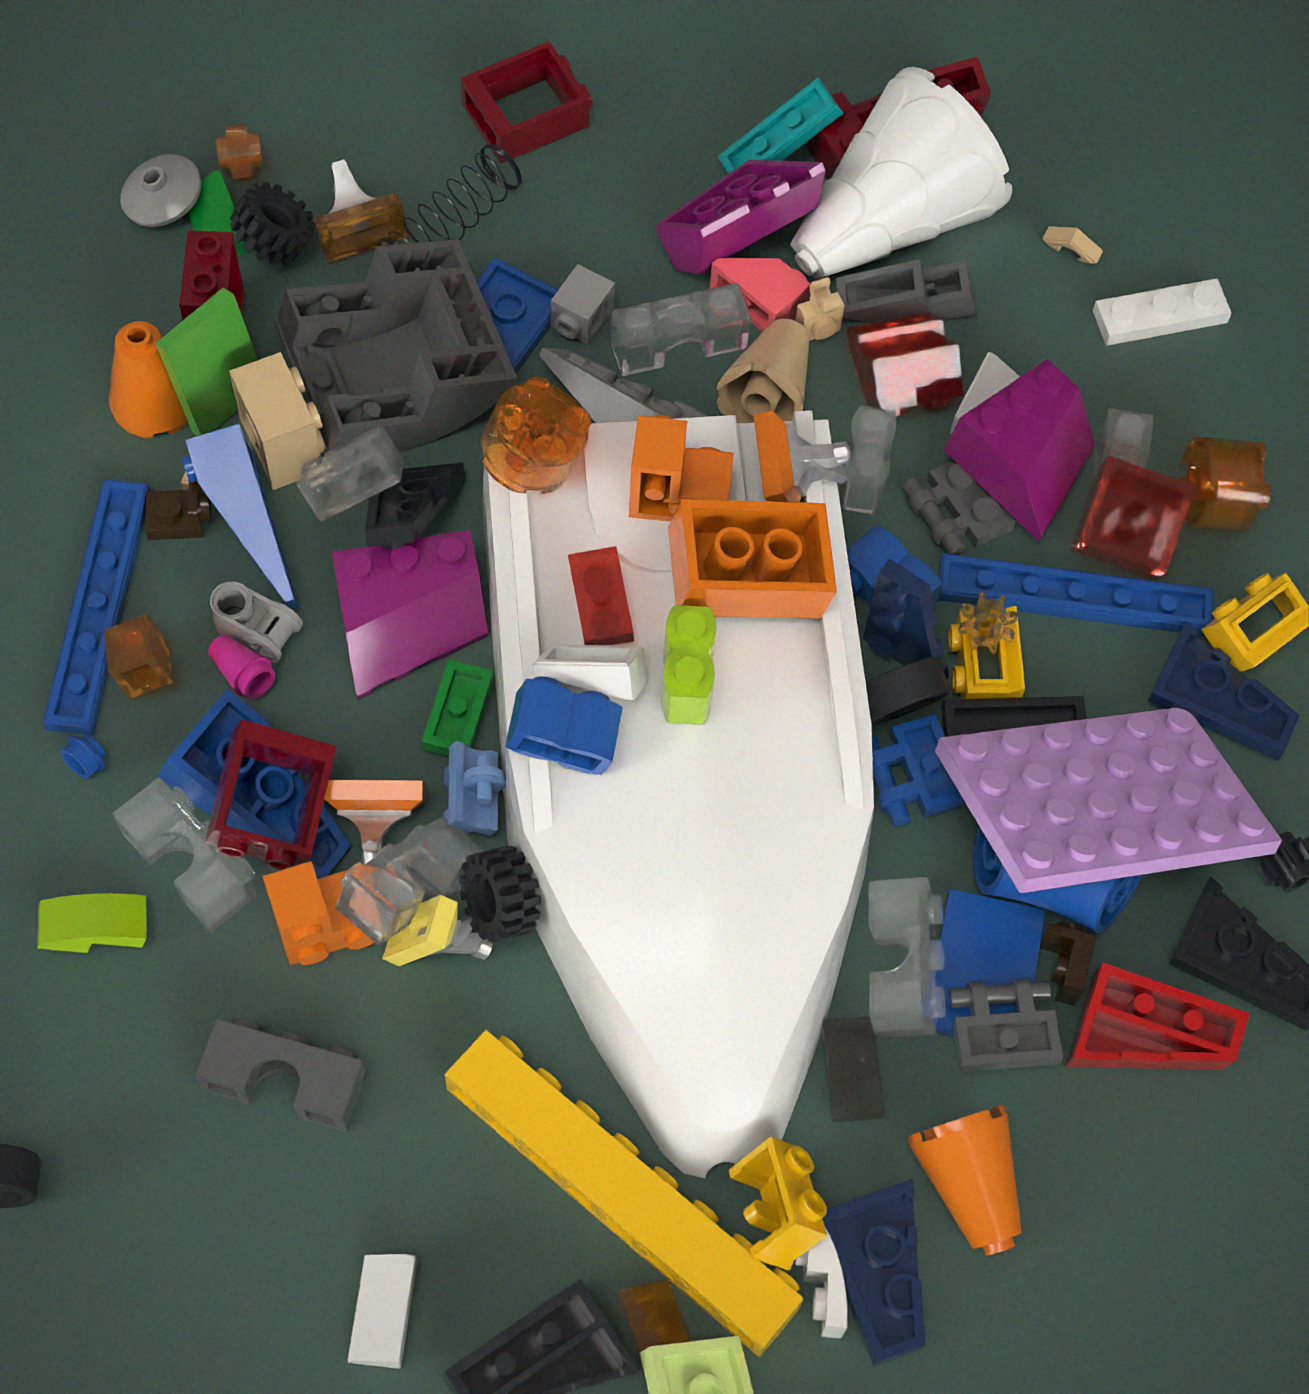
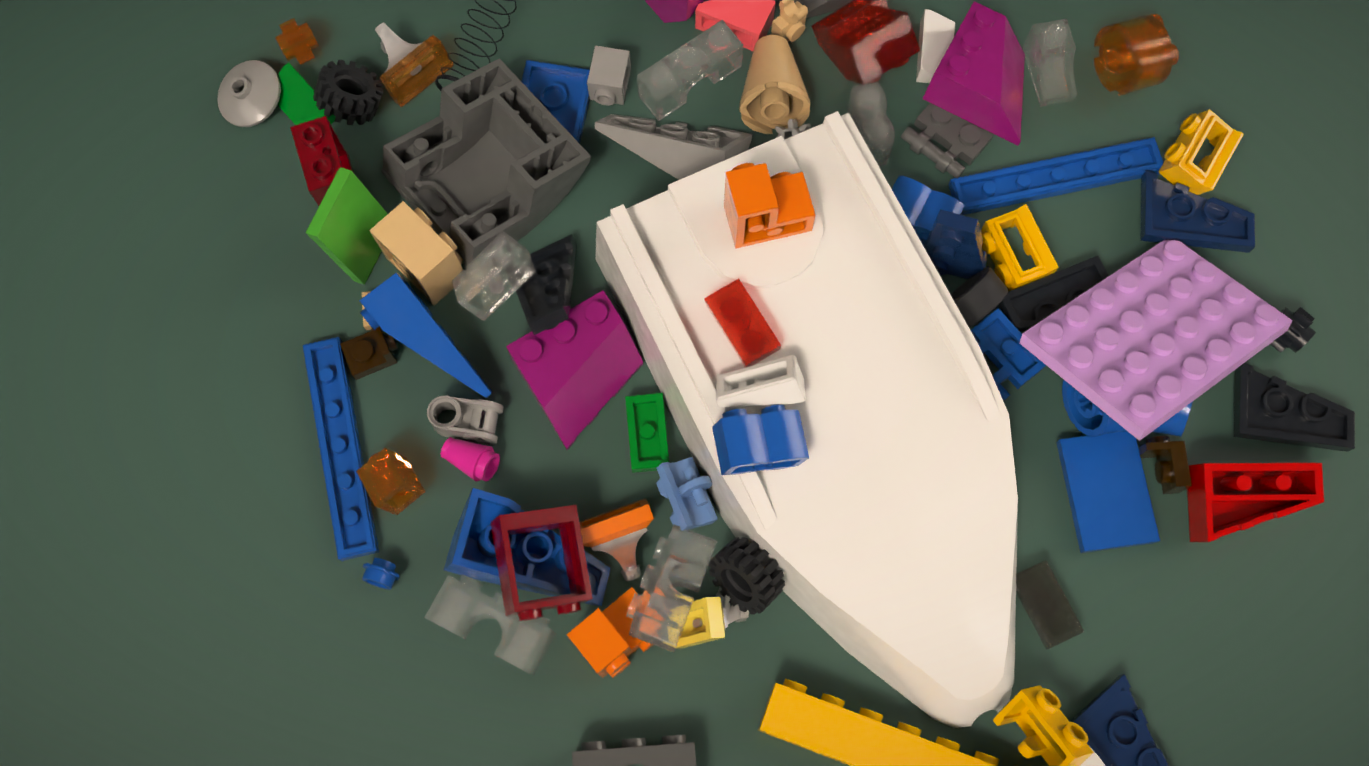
camera: 15 degrees left, 10 degrees up
(84, 919) = (442, 704): lime slope -> none
(140, 386) = (301, 262): orange cone -> none
(534, 437) = (641, 211): clear orange brick -> none
(688, 664) = (841, 366): lime brick -> none
(752, 558) = (849, 253): orange brick -> none
(791, 462) = (844, 160): piece -> none
(906, 997) = (1069, 537): clear arch -> none
(974, 1176) = (1167, 653): orange cone -> none
(995, 632) = (1017, 227): clear yellow gear -> none
(1008, 1038) = (1151, 543): dark grey plate -> none
(1133, 518) = (1082, 104): clear red brick -> none

